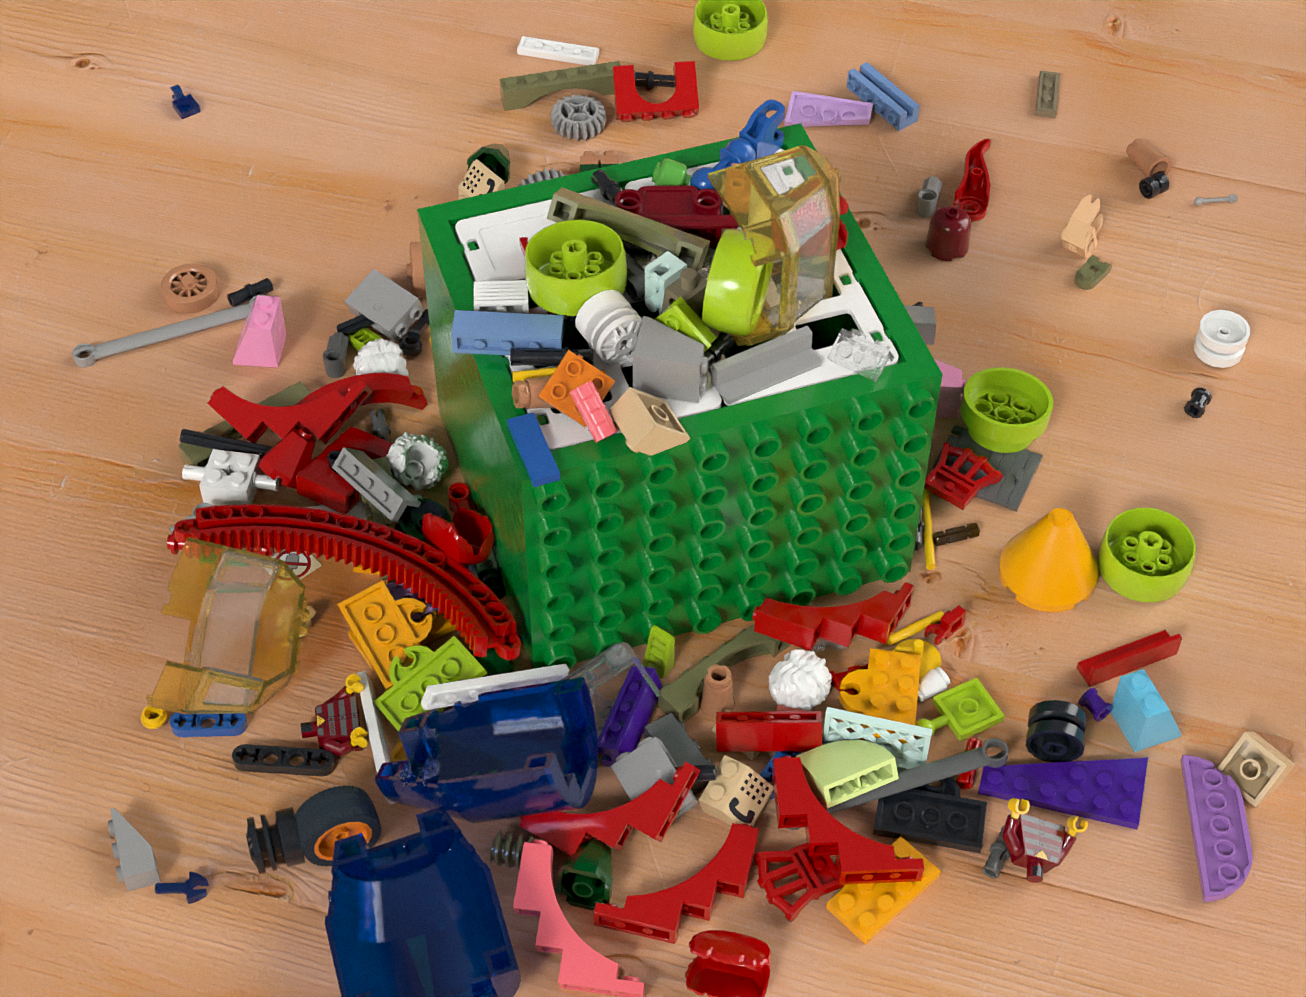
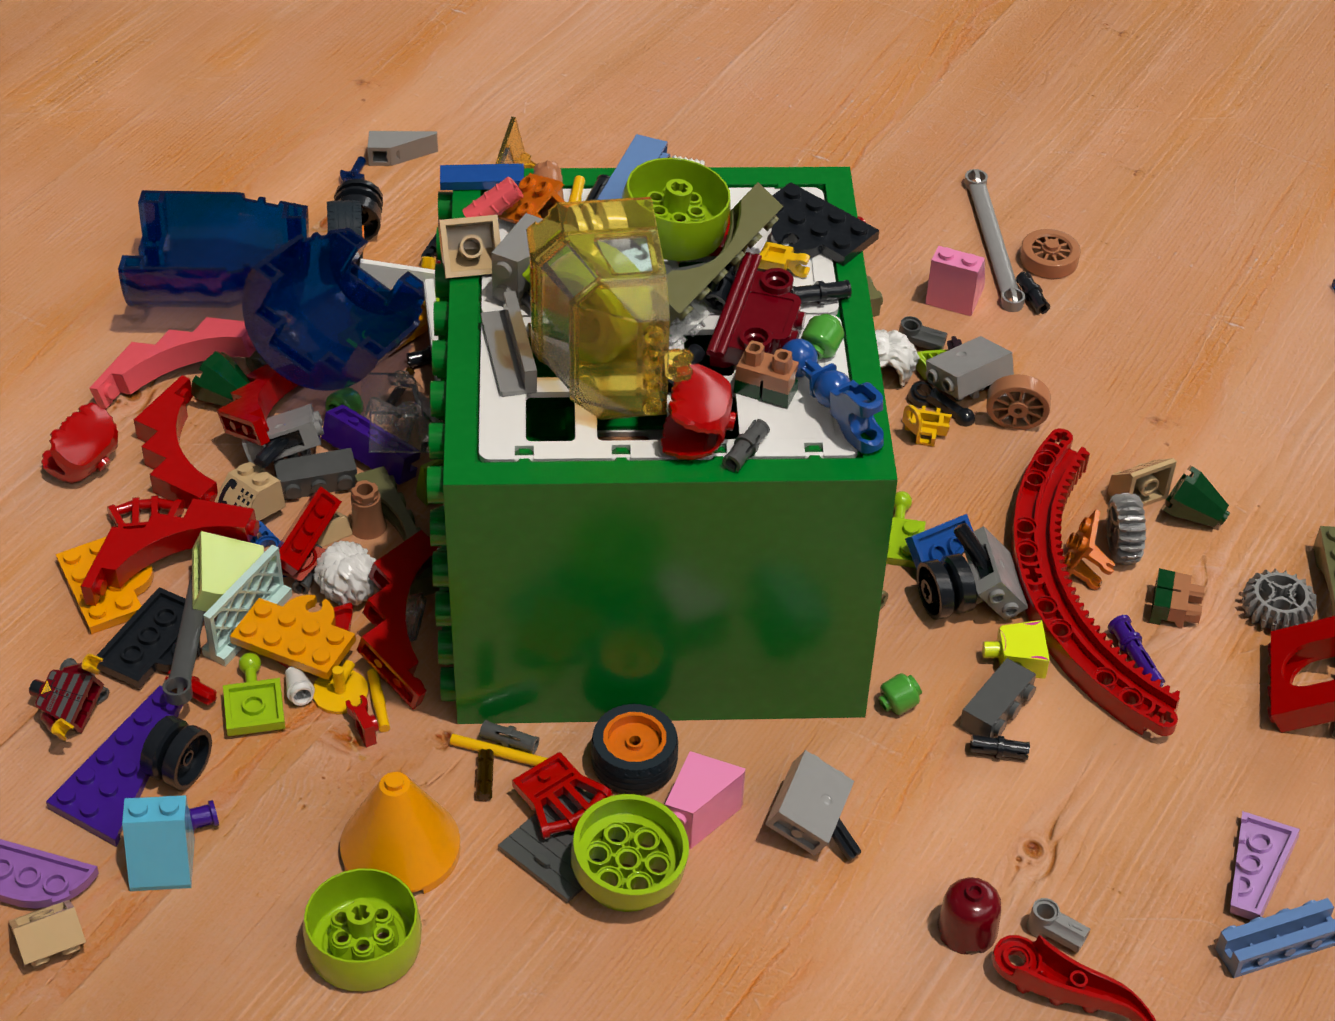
camera: 105 degrees right, 5 degrees down
(514, 212) = (819, 227): none -> black plate
(859, 354) = (494, 419): clear bracket -> none
(1129, 657) = (246, 875): red panel -> none

